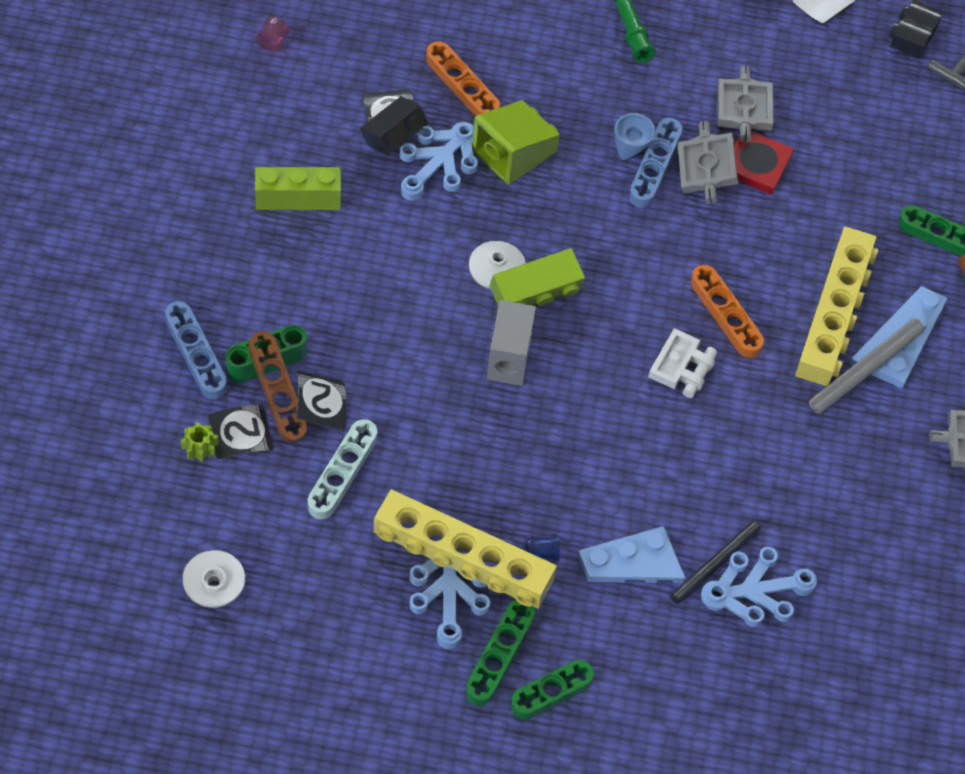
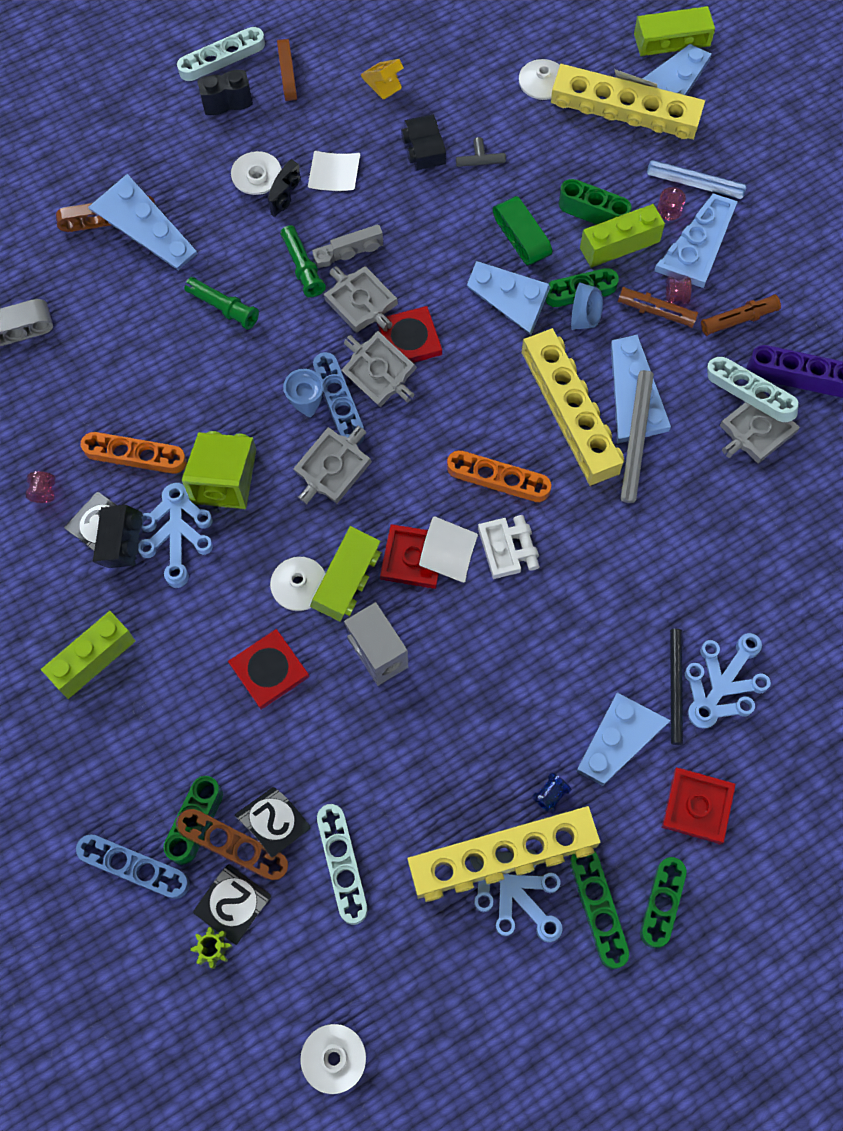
camera: 35 degrees left, 10 degrees up
(371, 52) = (40, 487): none -> clear pink wheel
(417, 303) = (268, 669): none -> red tile
(602, 314) = (403, 558): none -> red tile
(603, 202) = (332, 465): none -> light grey plate
(633, 328) = (448, 549): none -> white sticker
(647, 652) = (698, 805): none -> red tile
(723, 51) = (305, 269): none -> green pin
(774, 59) = (349, 245): none -> light grey hinge
(871, 190) = (510, 293): none -> light blue wing
(925, 246) = (586, 307): none -> medium blue piece
(930, 152) = (522, 230): none -> green beam

